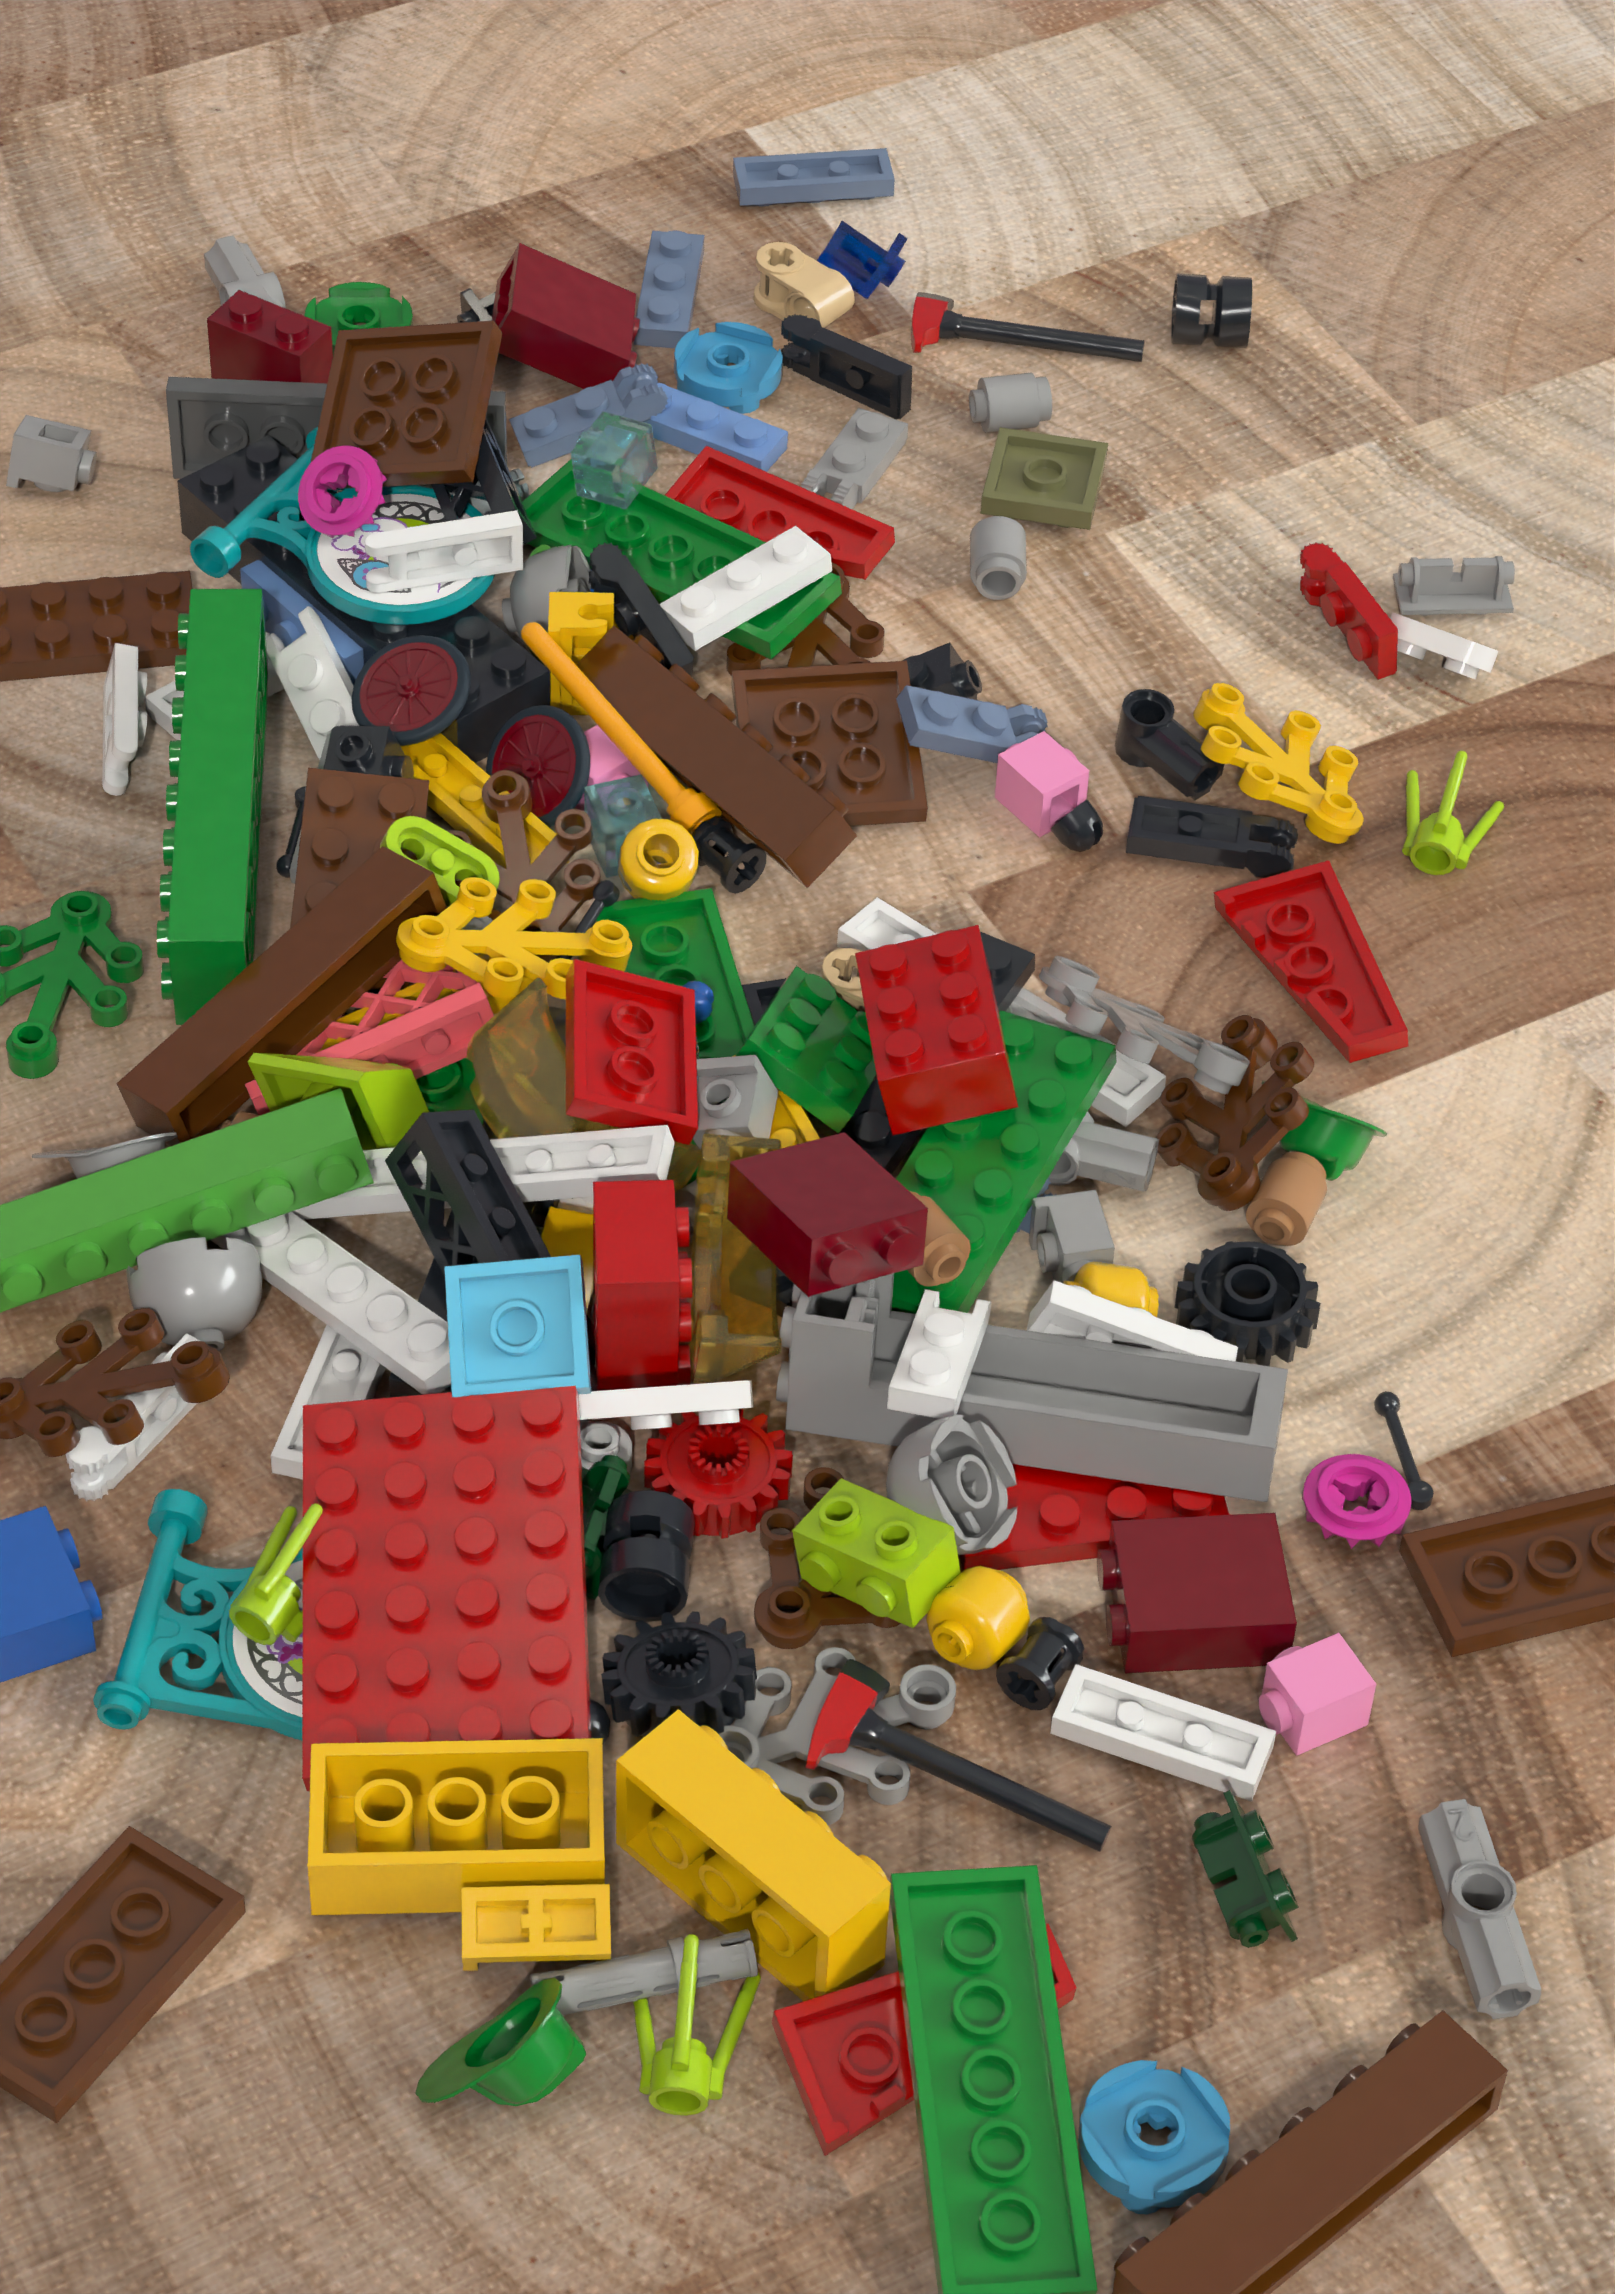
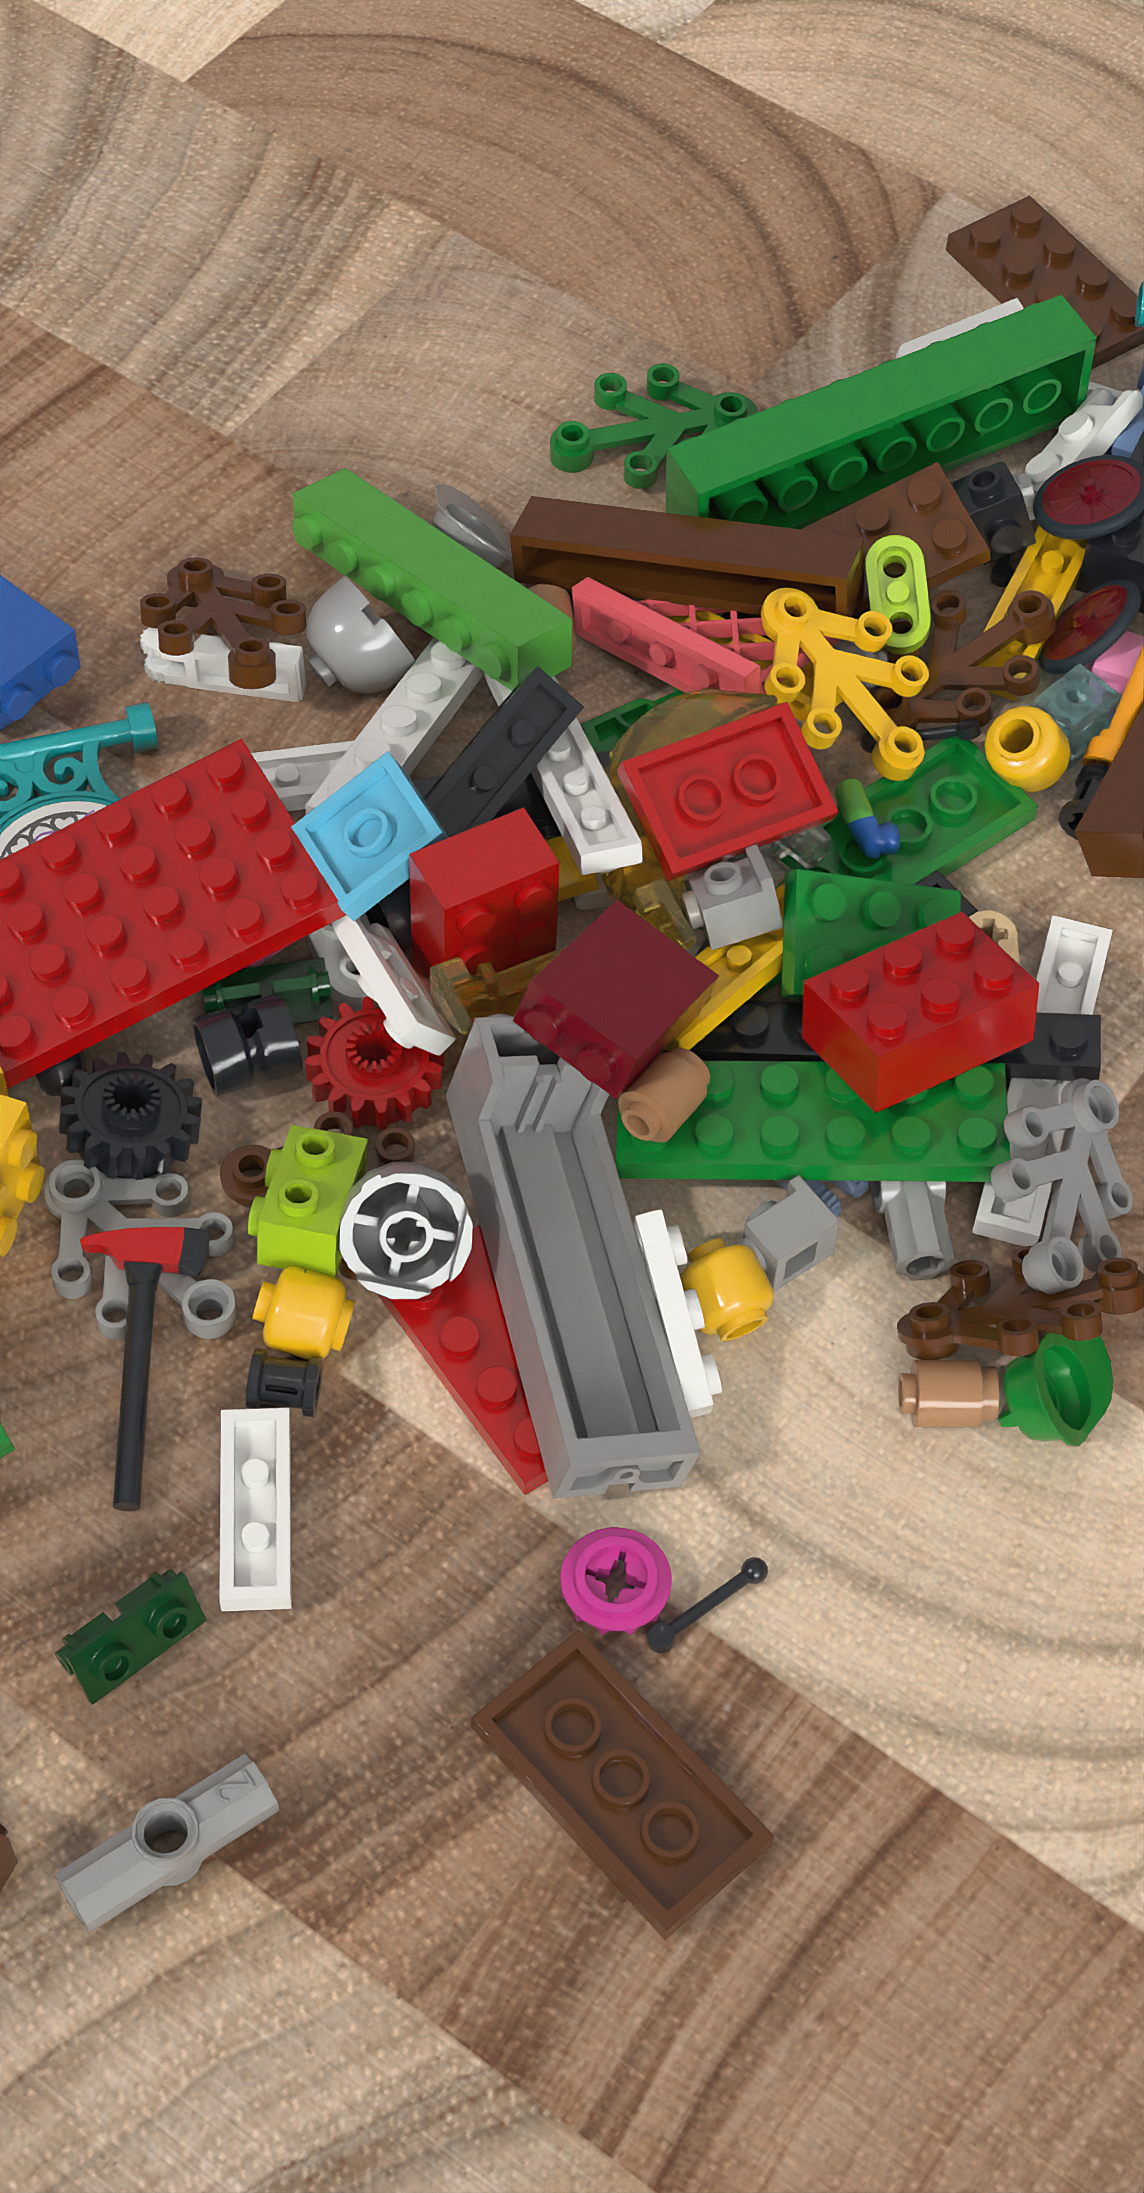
camera: 65 degrees right, 10 degrees up
(270, 1598) = (59, 806): lime plant -> none
(379, 1096) = (608, 647): lime slope -> none
(937, 1358) = (539, 1158): white hinge -> none
(1197, 1592) = (425, 1481): dark red brick -> none
(1250, 1300) = (788, 1433): black gear -> none
(1316, 1694) = (354, 1617): bright pink brick -> none

